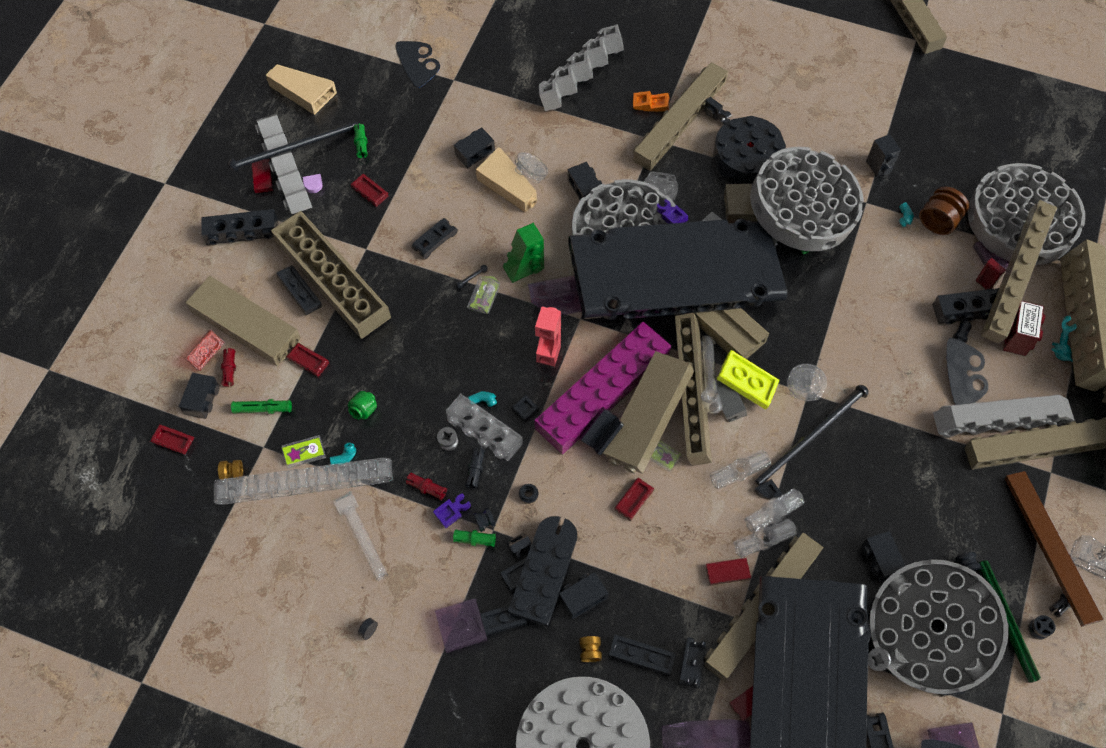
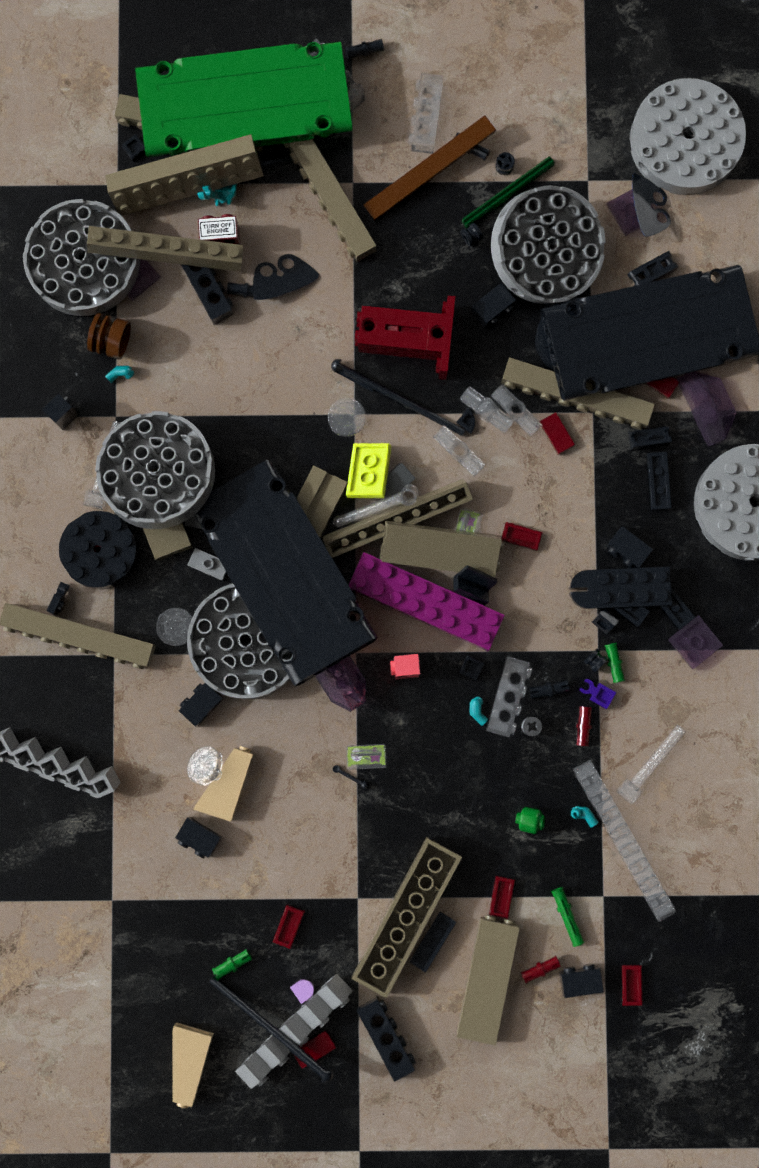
camera: 110 degrees left, 20 degrees up
(204, 350) = (533, 1002): clear red plate -> none
(230, 470) = (640, 912): pearl gold wheel -> none
(303, 451) = (595, 854): slope -> none
(367, 628) = (730, 720): black tile -> none
(409, 58) = (98, 963): black piece -> none
(434, 238) = (322, 832): black plate -> none
(526, 253) = (317, 729): green wedge -> none
(528, 488) = (560, 631): black plate -> none
(590, 649) = (671, 525): pearl gold wheel -> none
(647, 102) = (67, 674): orange slope -> none
(672, 214) = (222, 596): dark purple plate -> none
(875, 464) = (407, 333): none -> dark red brick
(880, 656) = (591, 289): flat silver wheel -> none
(990, 274) = (169, 276): dark red tile -> none
(1003, 415) = (317, 233): light grey brick -> none

